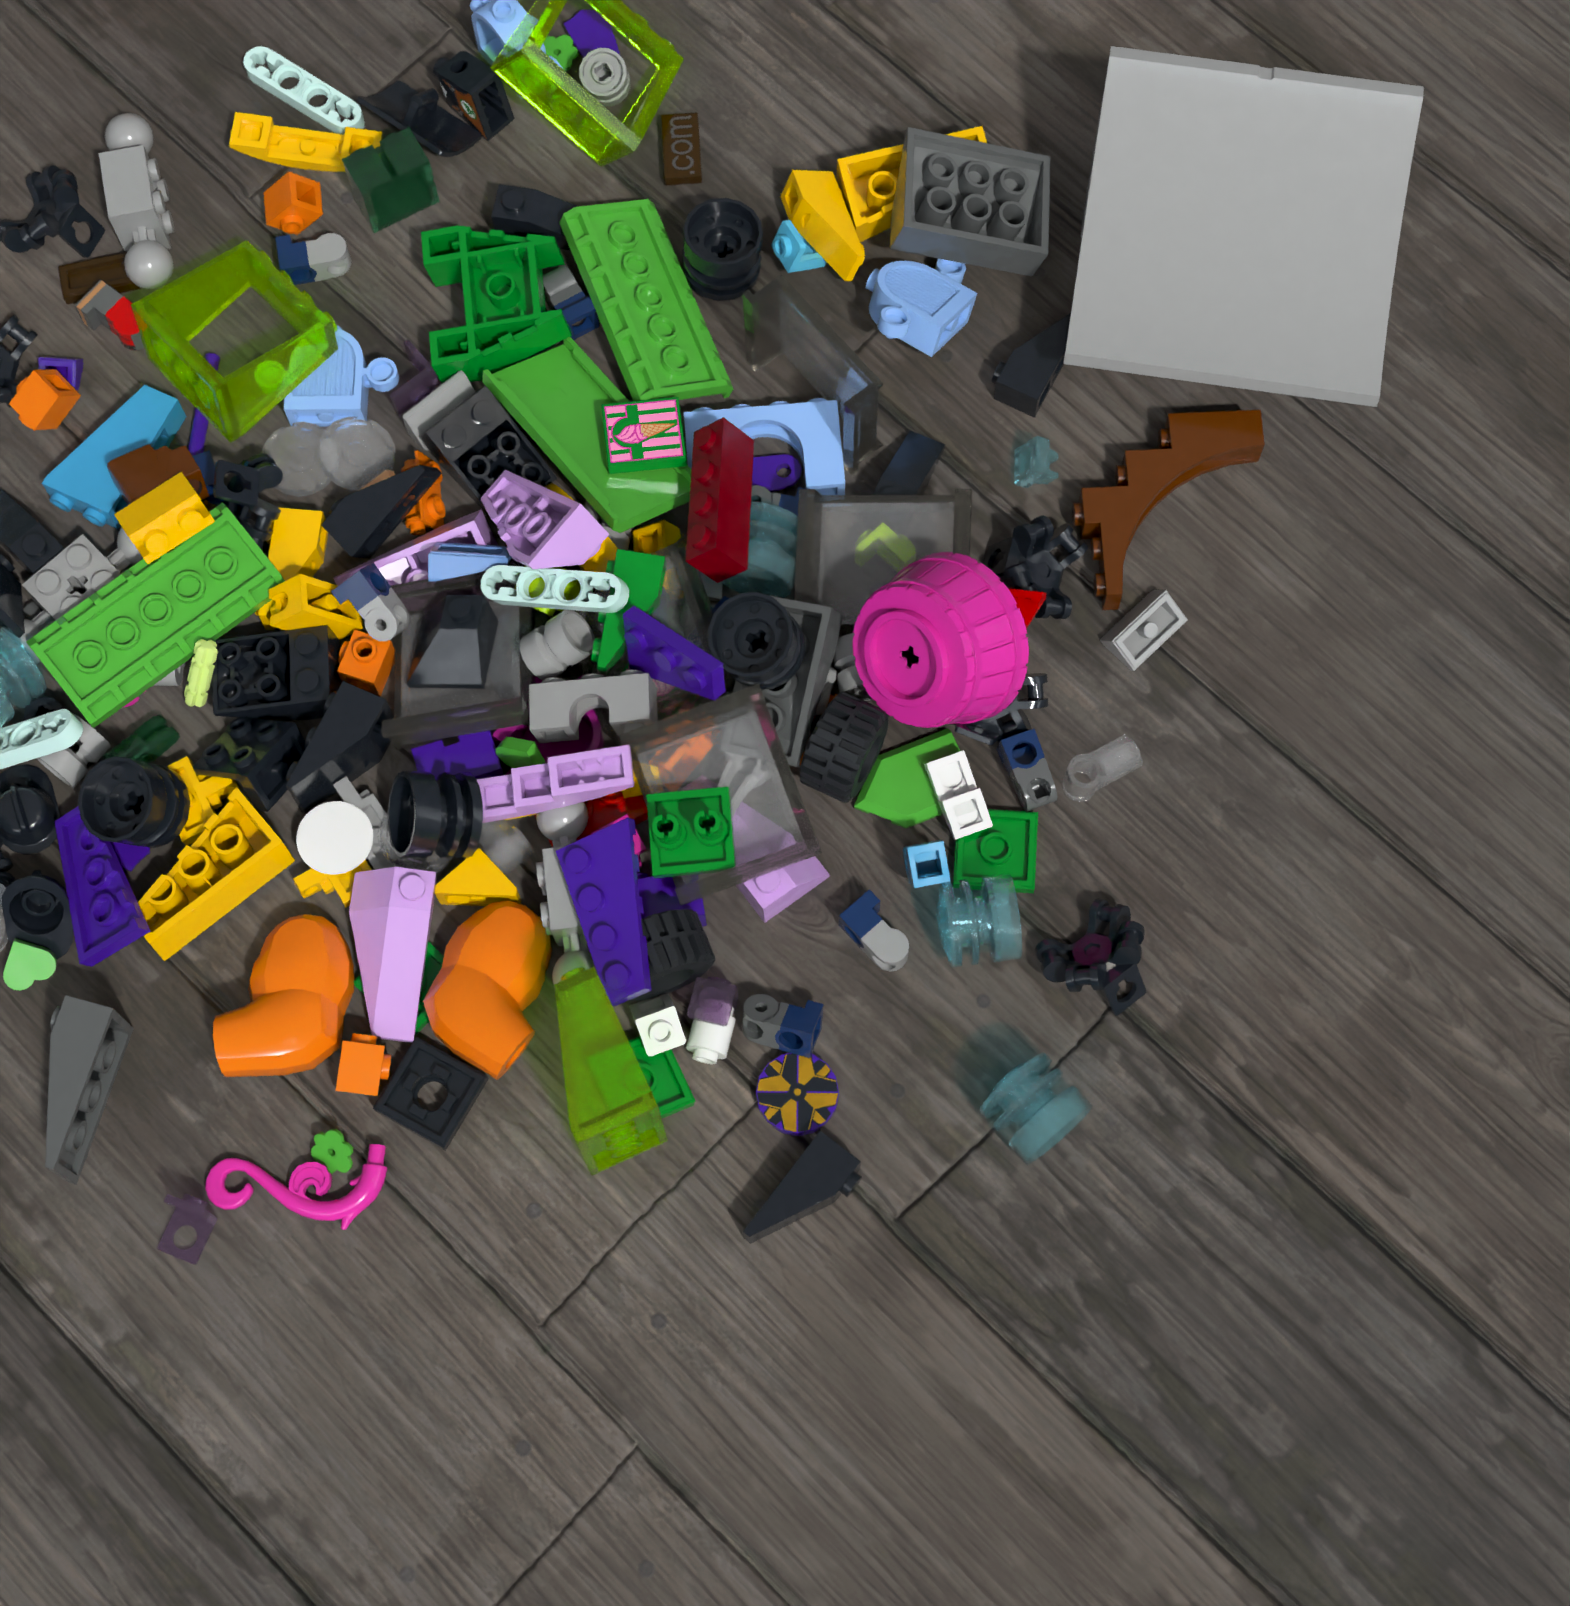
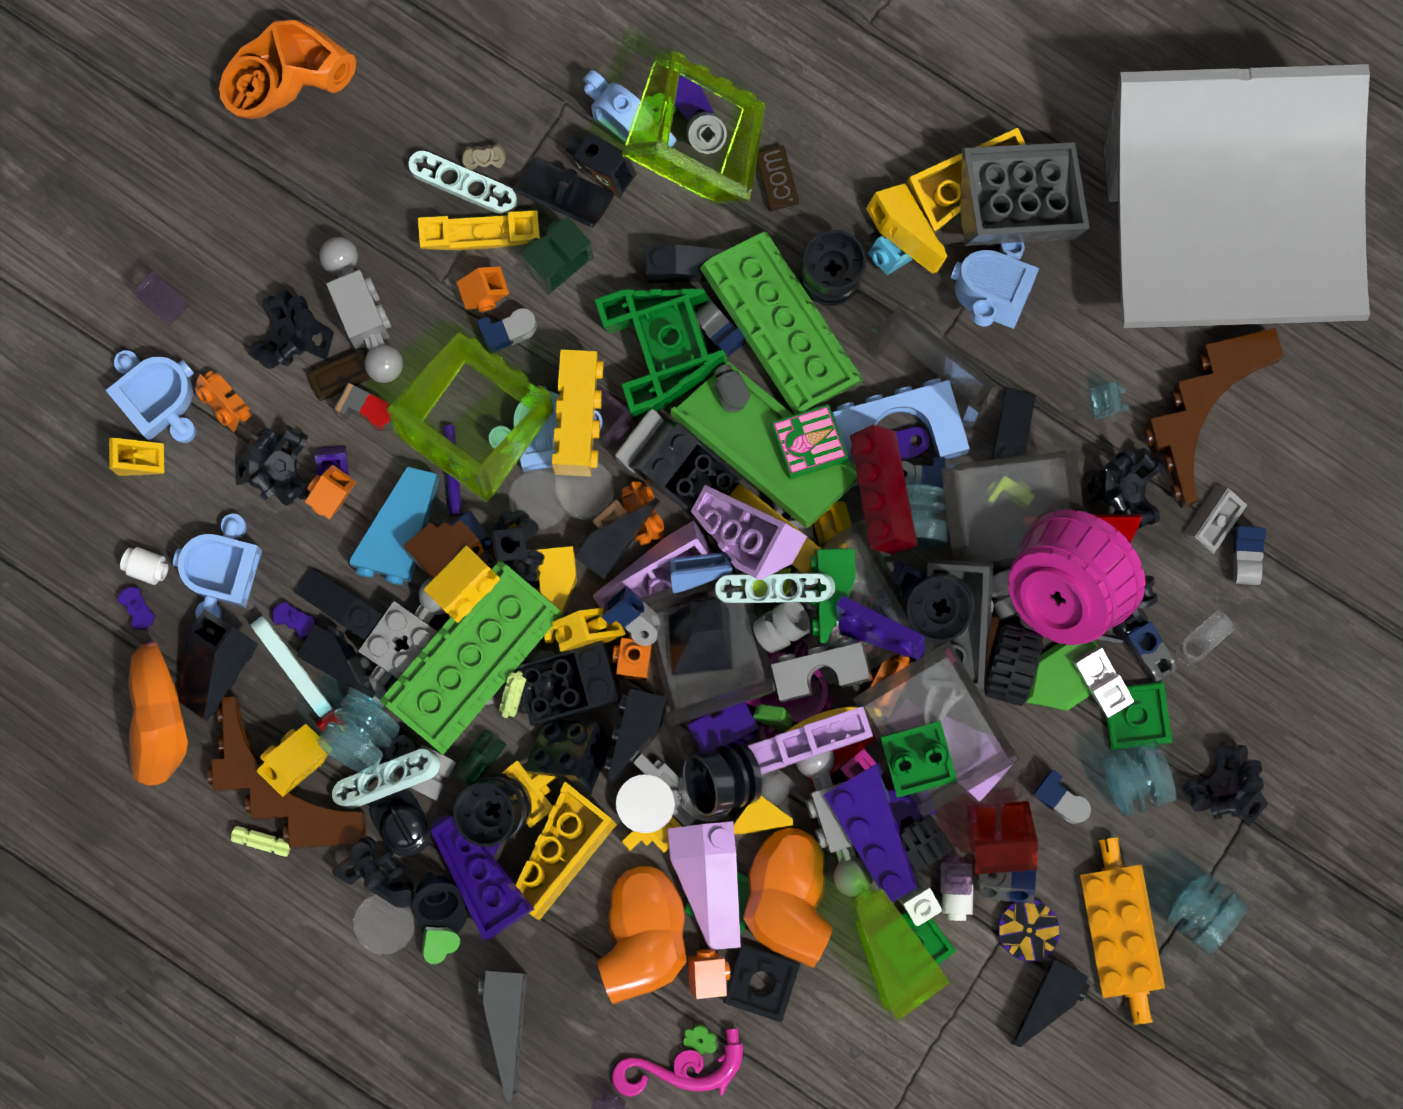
camera: 10 degrees left, 10 degrees up
(335, 66) = (483, 156): none -> dark tan piece
(362, 354) = (577, 413): none -> yellow wedge
(563, 363) = (731, 389): none -> dark grey arm
(779, 977) = (1003, 850): none -> clear red piece
(920, 1117) = (1122, 931): none -> light orange plate
(926, 864) = (1091, 740): dark azure leg -> none
(1032, 369) = (1093, 321): black slope -> none
(1177, 674) = (1248, 555): none -> leg

